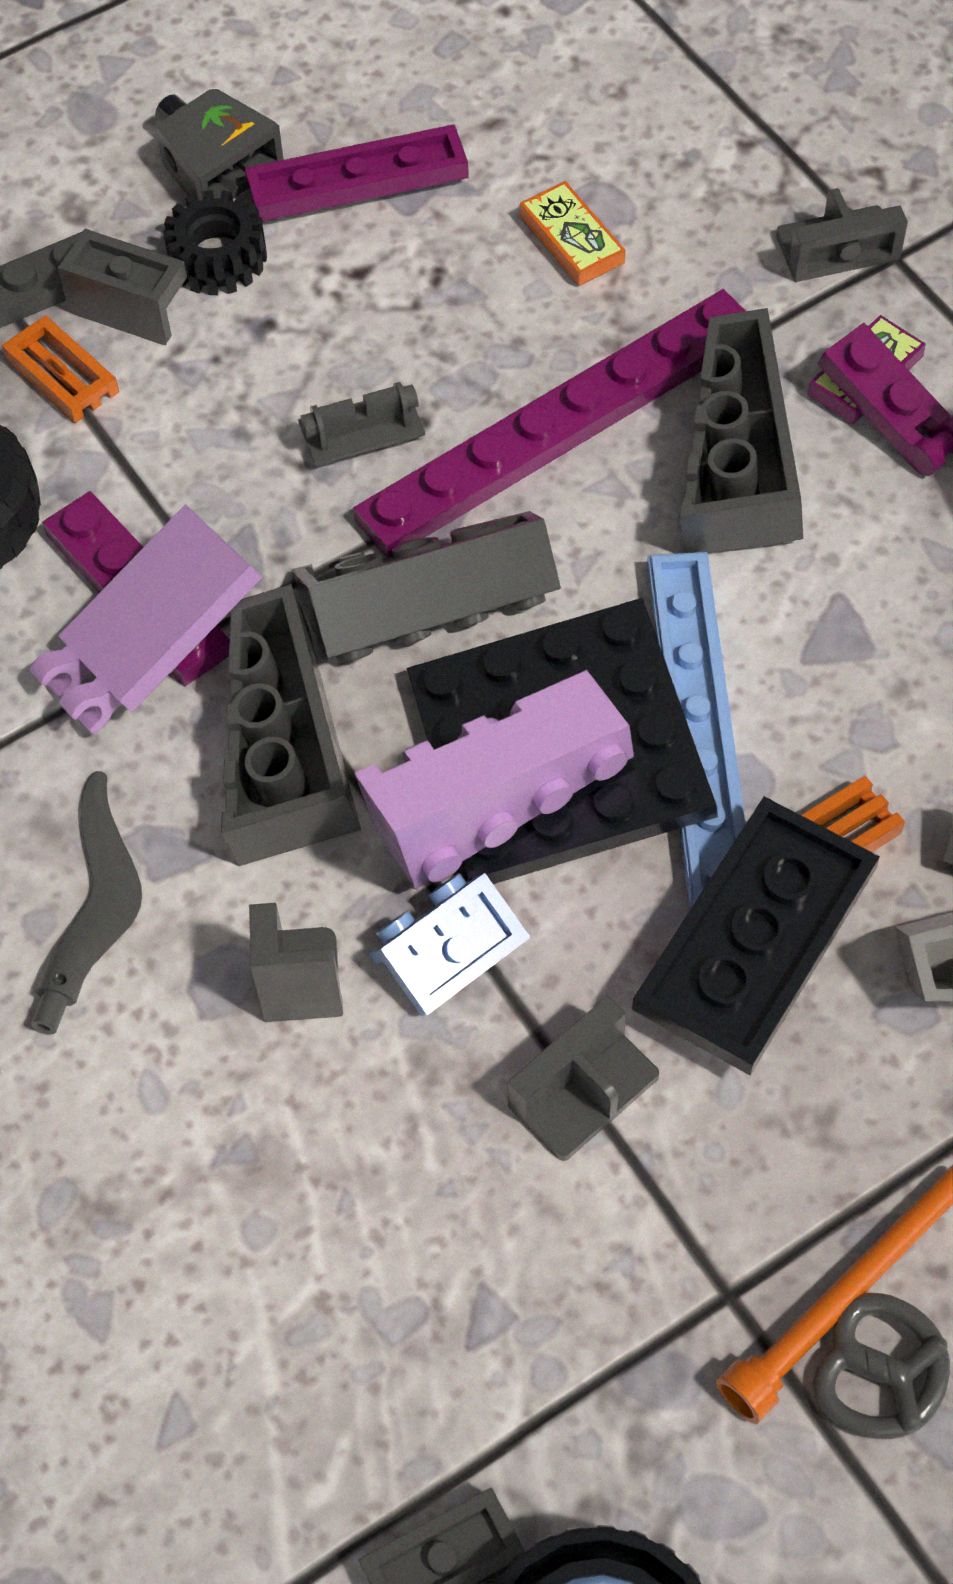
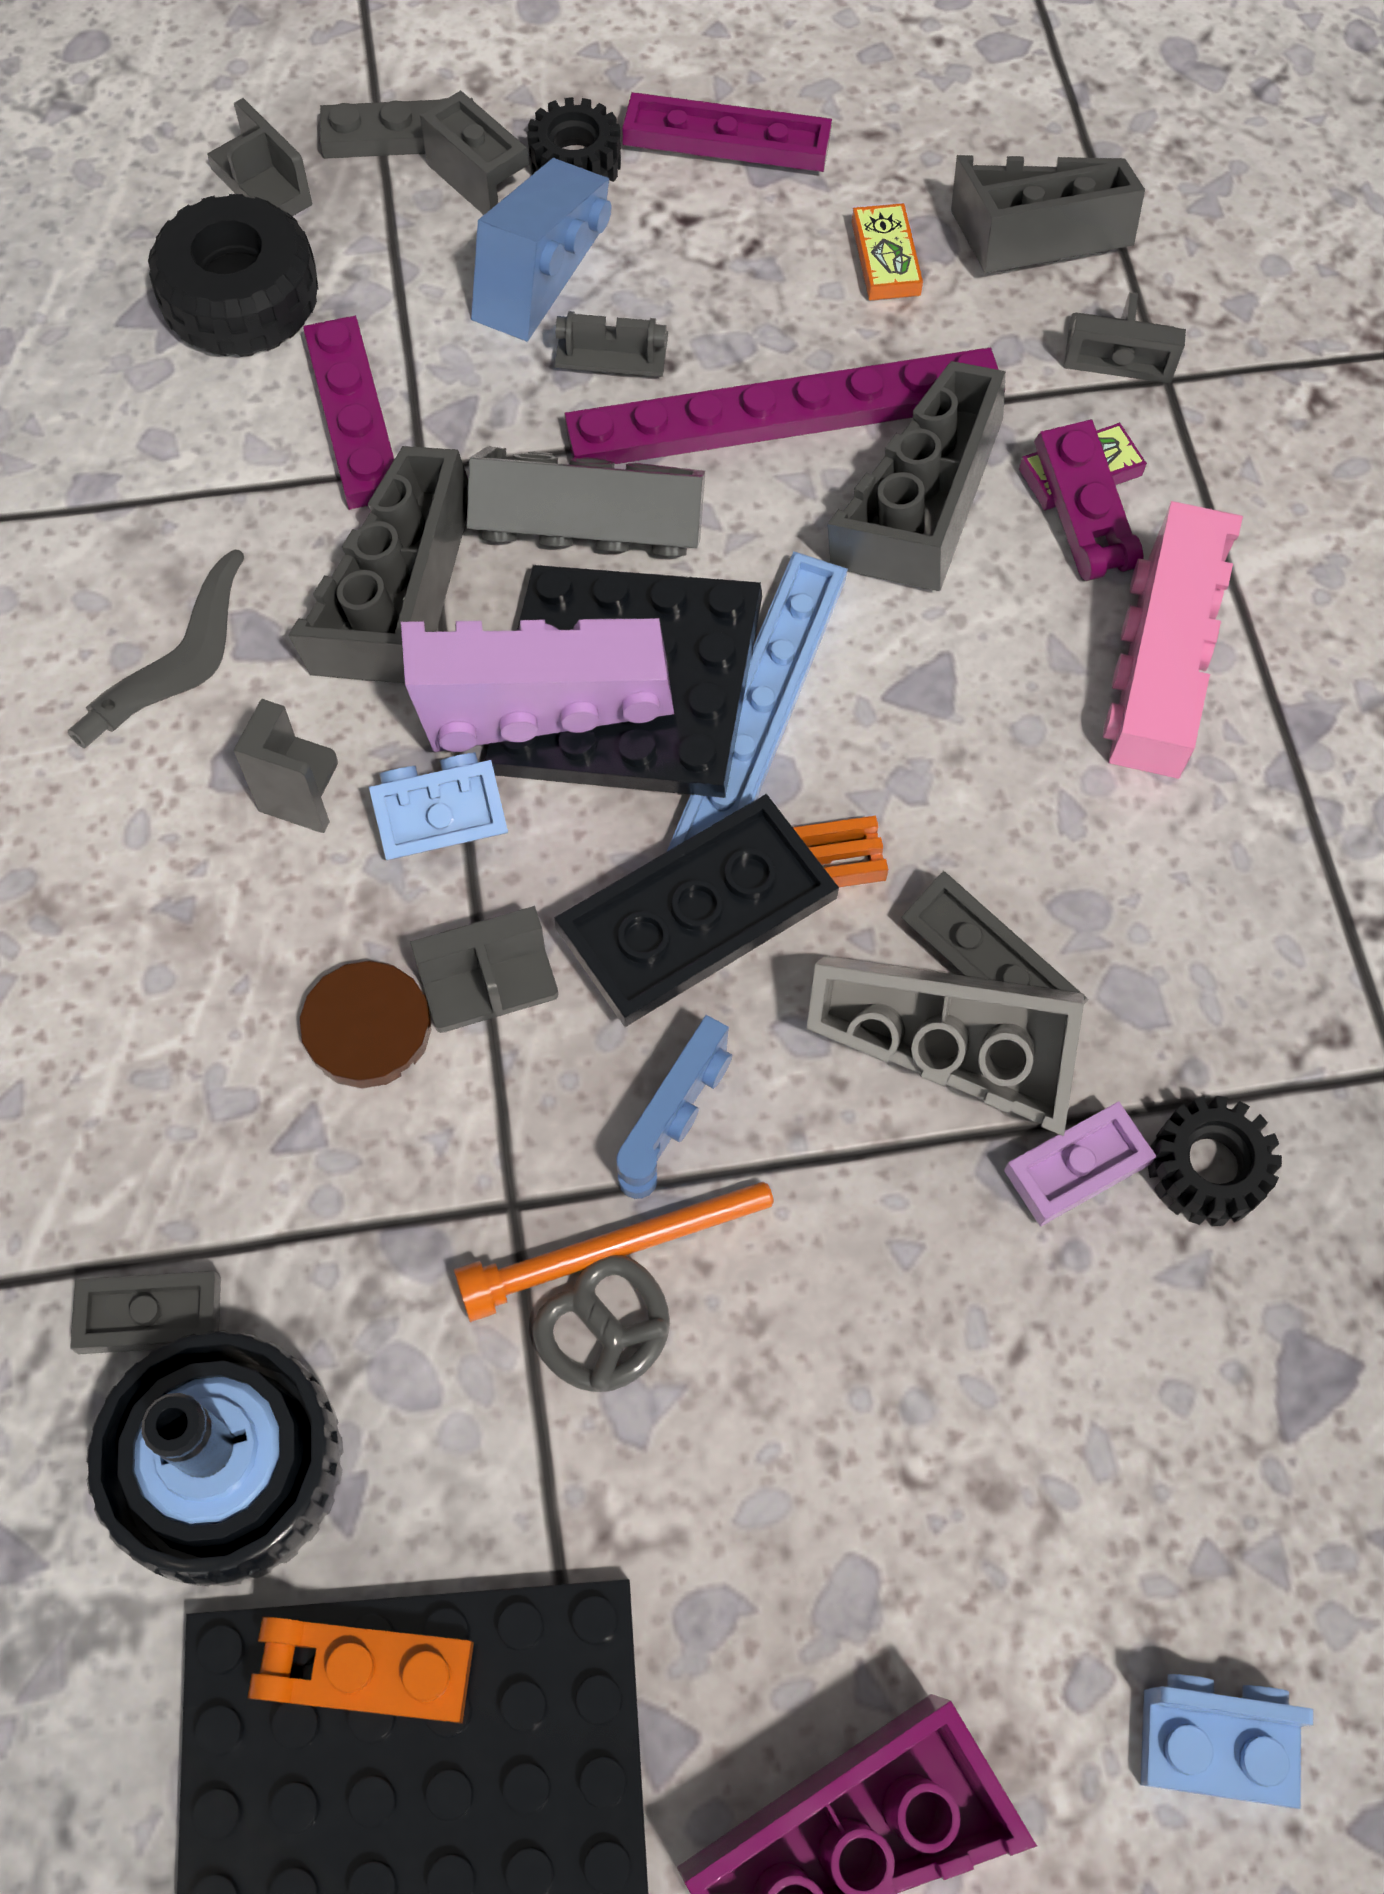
camera: 20 degrees right, 5 degrees up
(85, 395) = (399, 236): orange tile -> none
(146, 620) = (331, 436): lavender tile -> none
(213, 142) = (619, 58): dark grey torso -> none
(238, 354) = (535, 244): none -> medium blue wedge
(493, 1183) = (365, 1024): none -> reddish brown tile
(704, 143) = (1044, 212): none -> dark grey wedge
(836, 1136) = (672, 1107): none -> medium blue plate

